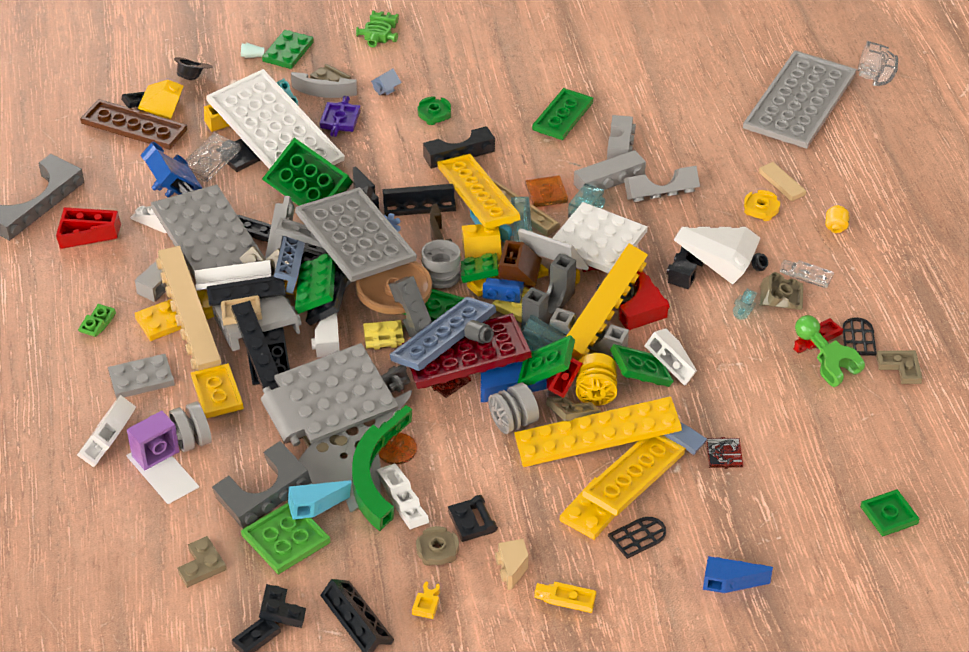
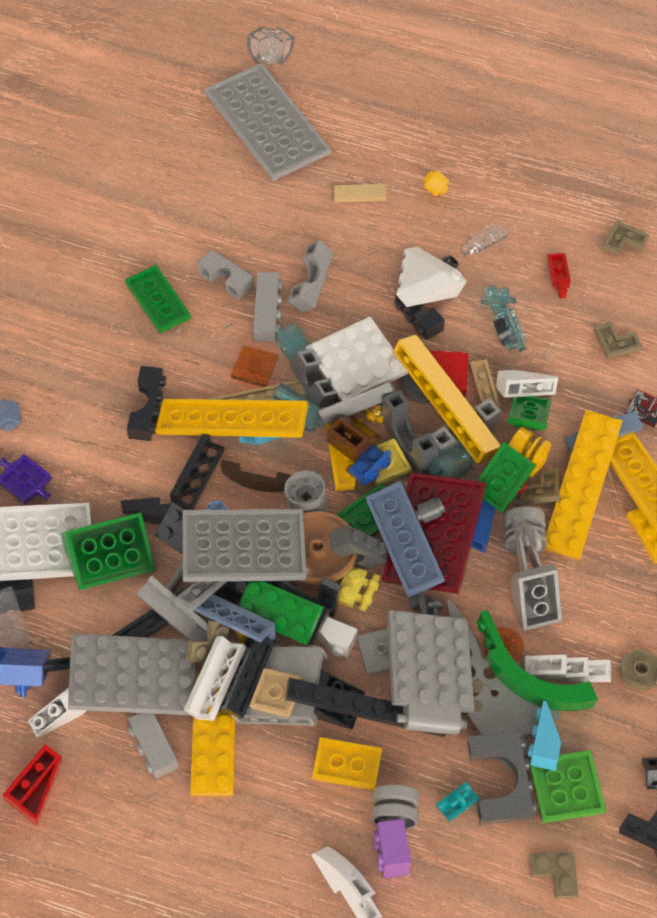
camera: 60 degrees left, 15 degrees up
(98, 321) = (177, 833): bright green slope -> none
(141, 376) = (281, 824): light grey plate -> none
(167, 478) = (430, 858): white sticker -> none
(188, 309) = (232, 740): tan brick -> none
(220, 467) = (457, 802): none -> teal hips
(355, 318) = (329, 594): none -> black plate
(440, 112) = (76, 405): green plate -> none
(456, 428) = (537, 589): none -> light grey slope
(466, 522) = (621, 634): black plate -> none
(479, 241) = (294, 454): yellow slope -> none
(479, 268) = (330, 466): green plate -> none
(564, 211) = (306, 367): none -> dark grey arch
(640, 339) = (483, 381): none -> tan tile
(720, 321) = (509, 328): none -> clear light blue piece
(753, 205) = (379, 231): yellow plate -> none
(774, 401) = (616, 345): none -> dark tan plate
(781, 292) = (494, 269): dark tan slope -> none
(831, 355) = (593, 277): bright green piece -> none
(853, 331) = (566, 241): black window -> none

